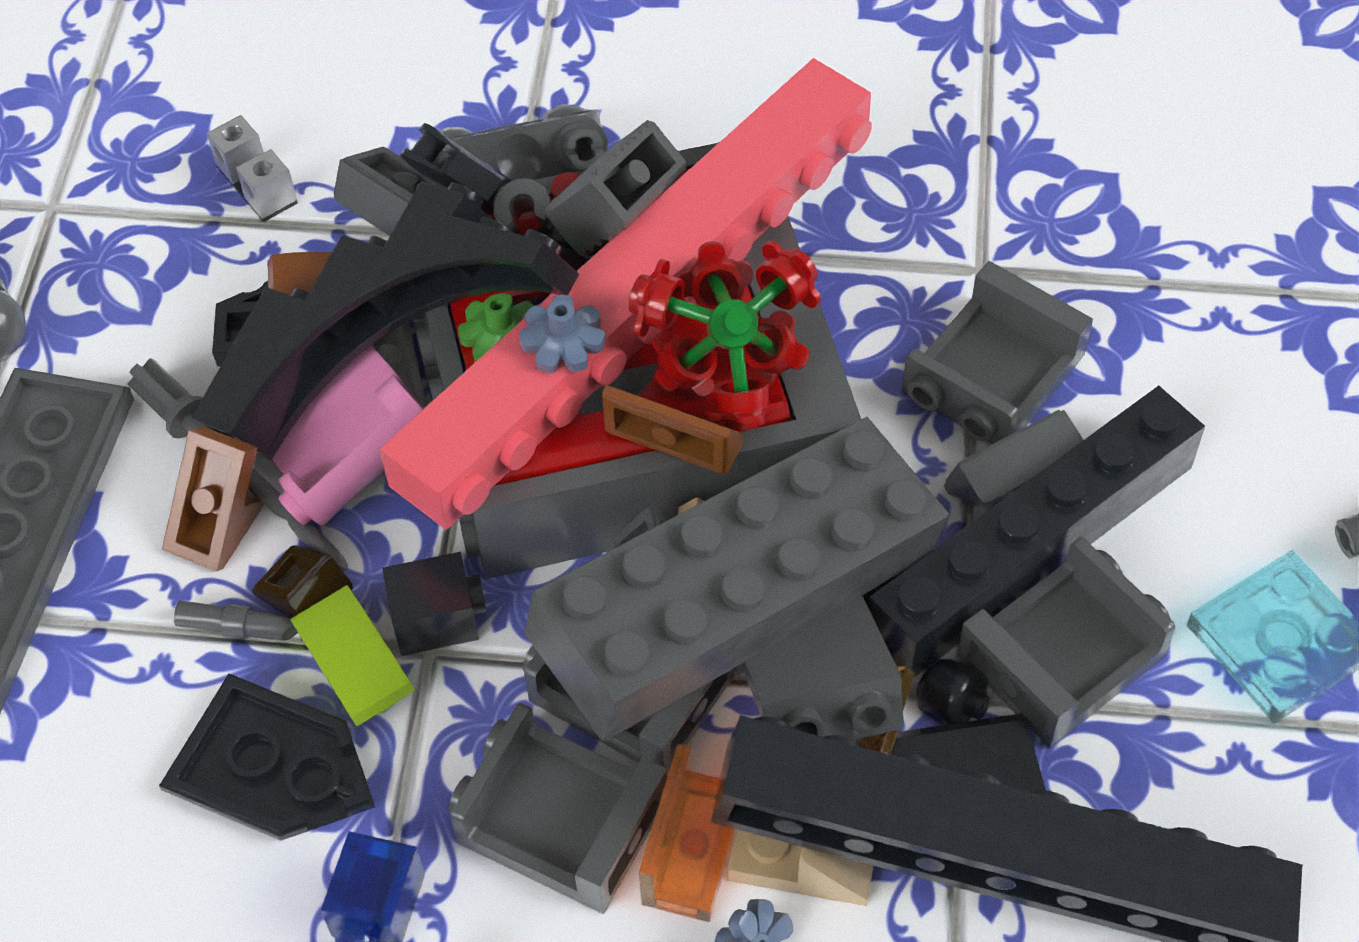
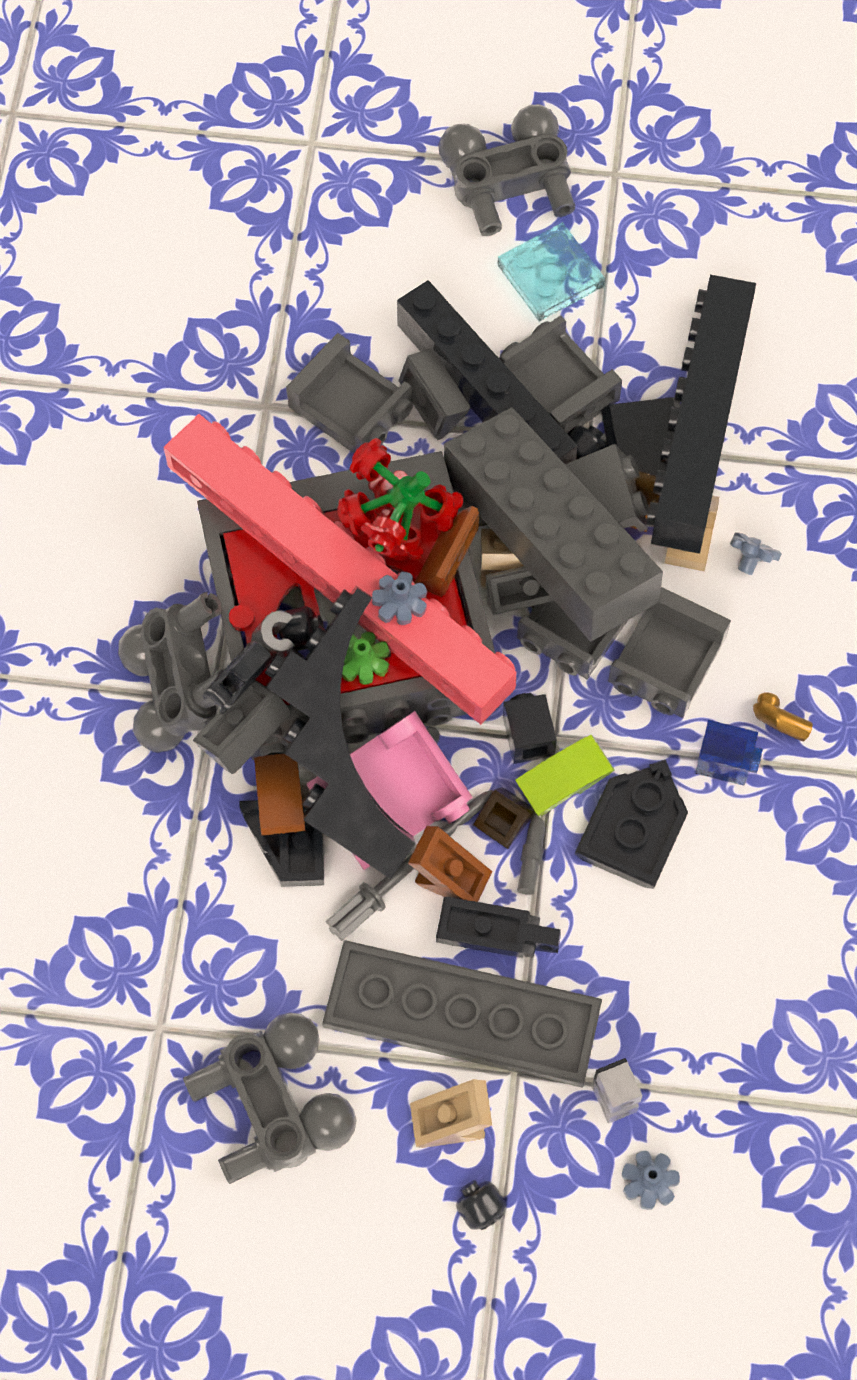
camera: 90 degrees left, 10 degrees up
(116, 569) = (494, 929): none -> black hinge
(254, 174) = (162, 866): flat silver piece -> none
(616, 189) = (271, 571): dark grey brick -> none
(685, 850) = (694, 582): clear orange panel -> none

